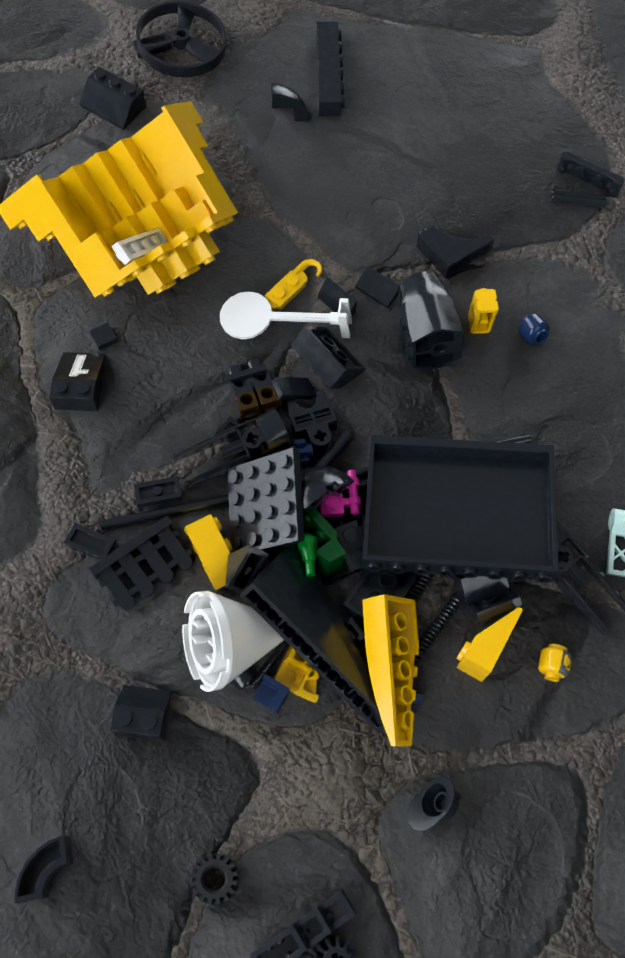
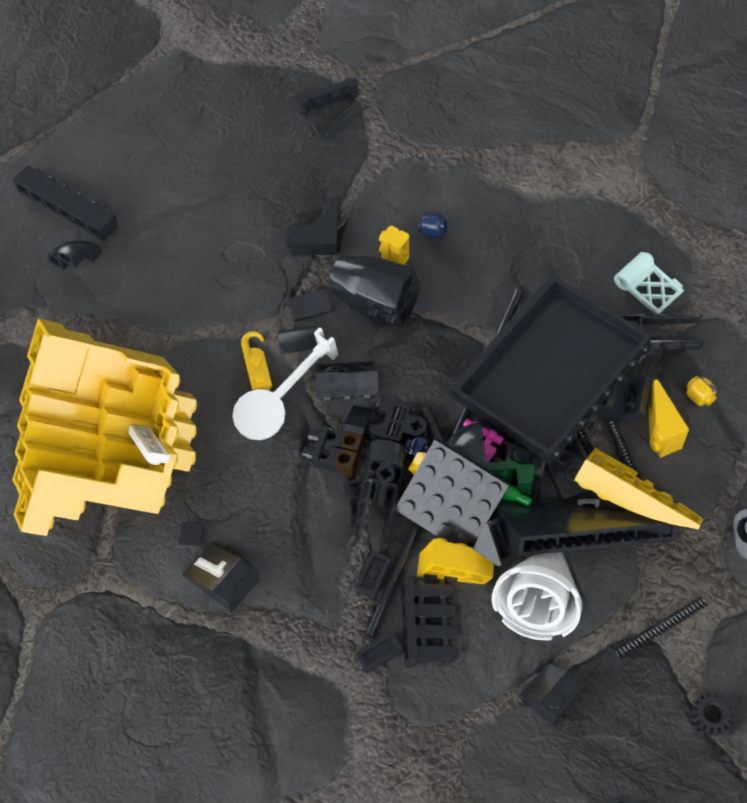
camera: 50 degrees left, 5 degrees down
(271, 694) = (599, 592): dark blue panel -> none
(288, 783) = (698, 606): none -> black piece
(298, 676) = (594, 565): yellow slope -> none

